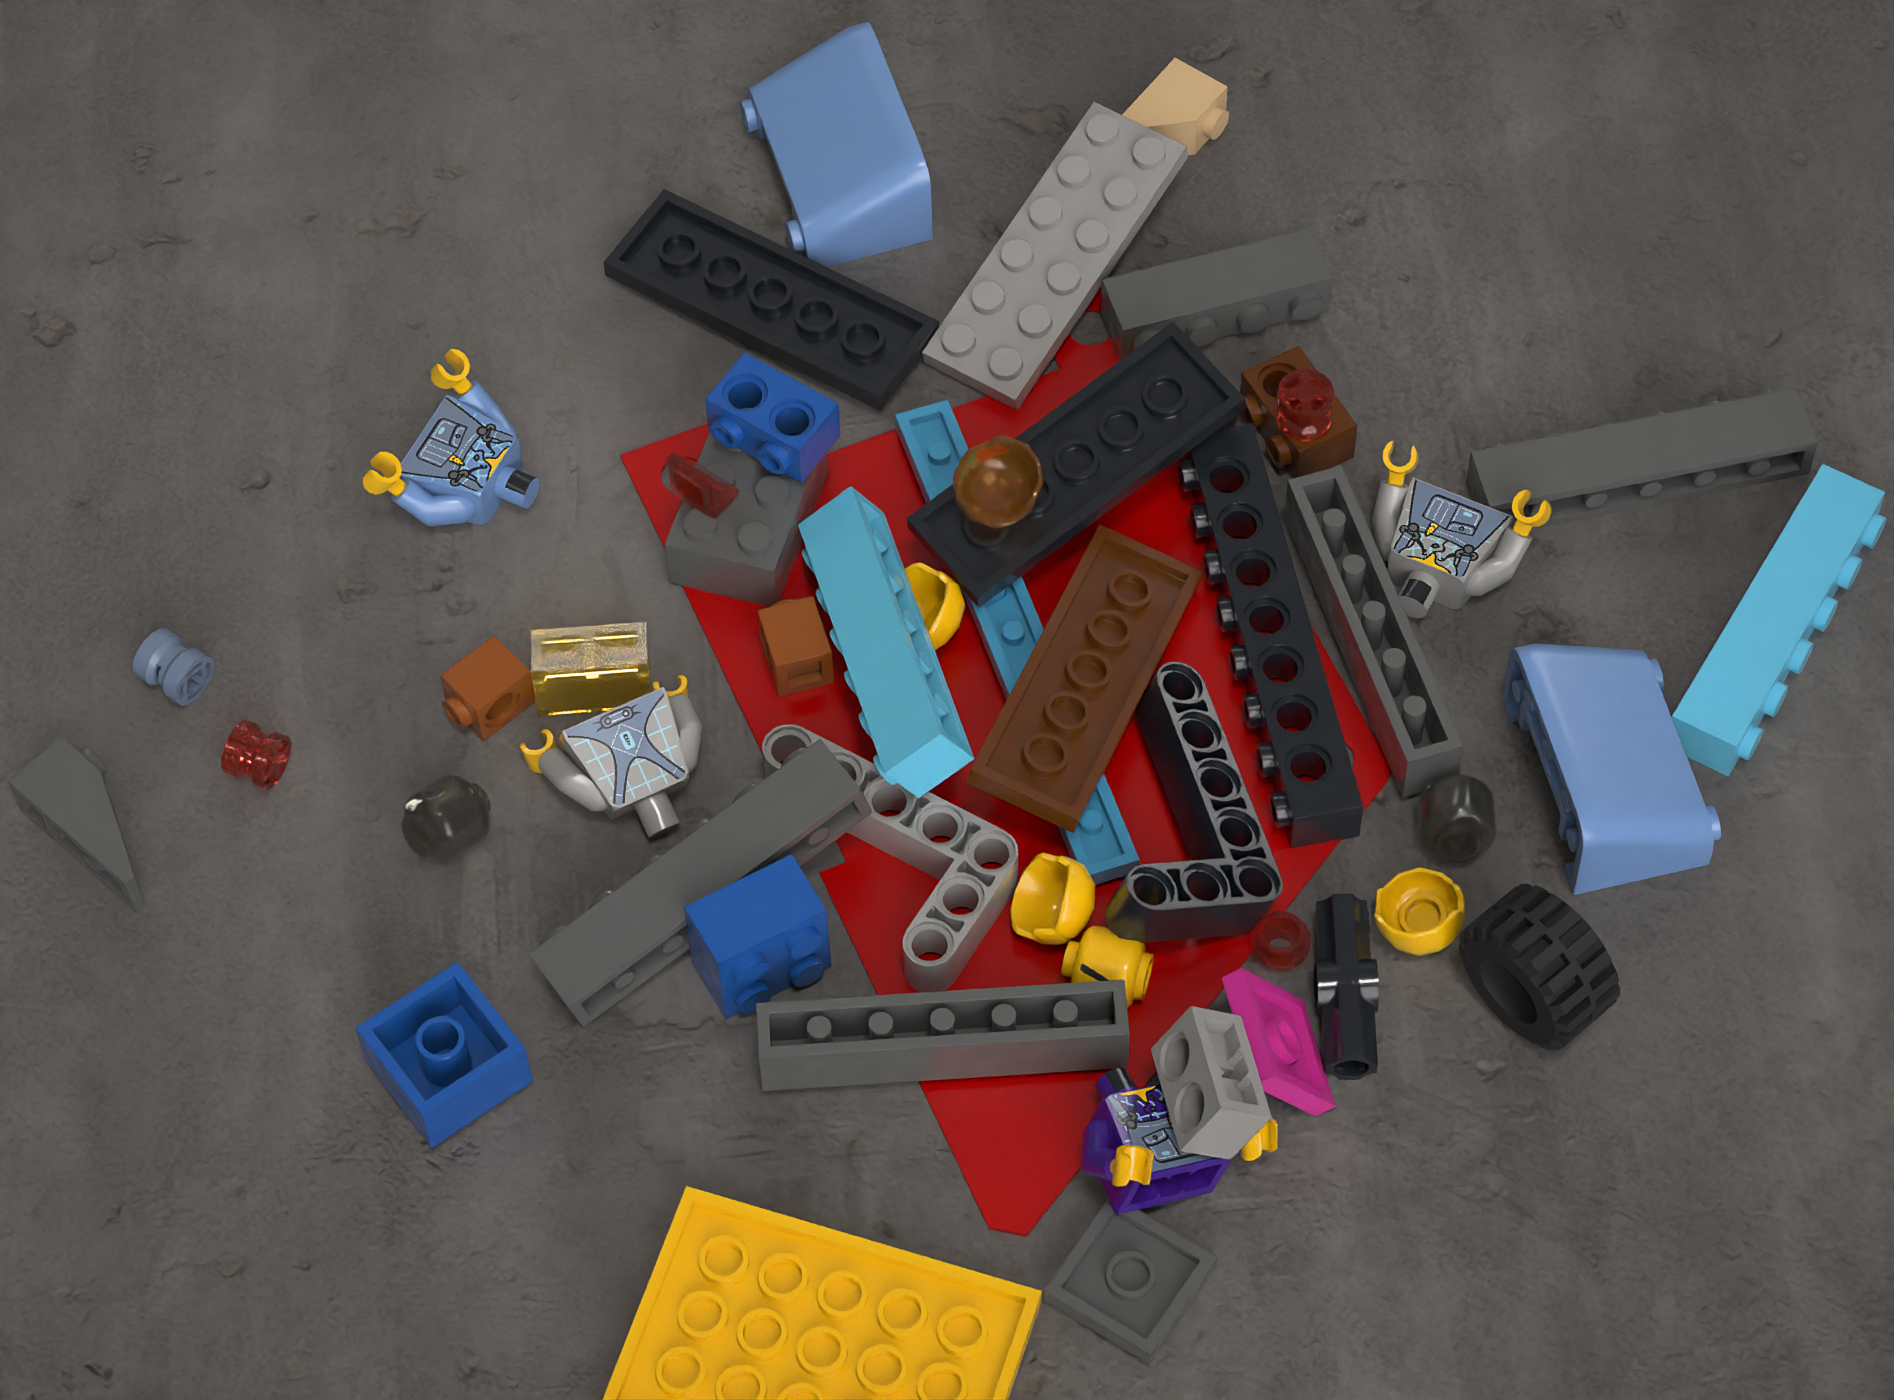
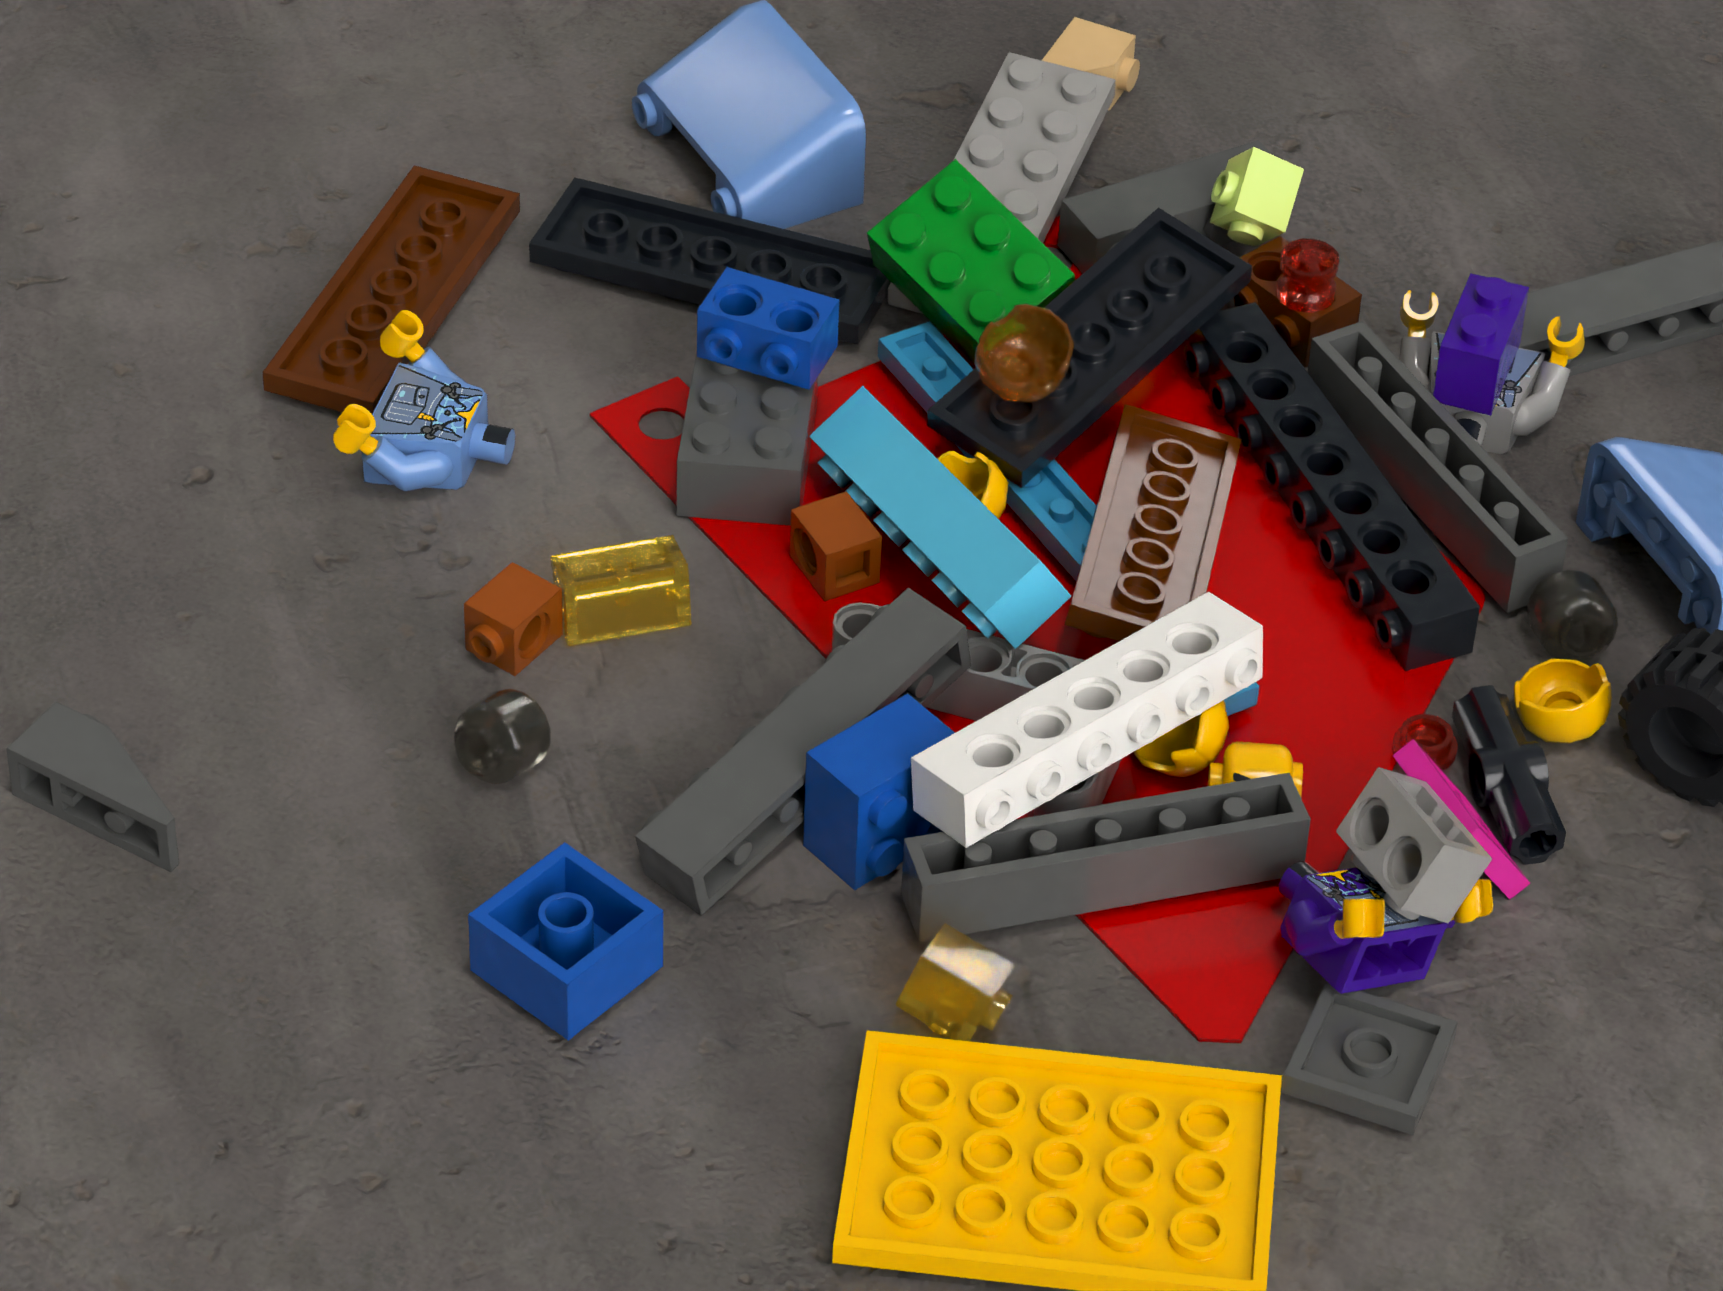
camera: 15 degrees left, 15 degrees down
(168, 663) = (157, 637): sand blue wheel -> none
(256, 754) = (273, 704): clear red wheel -> none
(471, 295) = (410, 259): none -> reddish brown plate
(627, 757) = (681, 659): light grey torso -> none
(699, 486) = (706, 393): clear red slope -> none
(776, 1154) = (957, 986): none -> clear yellow brick
(920, 902) = (1086, 719): none -> white brick
(988, 351) = (964, 257): none -> green brick
(1231, 865) = (1340, 674): black beam -> none
(1282, 303) = (1255, 196): none -> yellowish green brick
(1443, 511) = (1480, 344): none -> dark purple brick

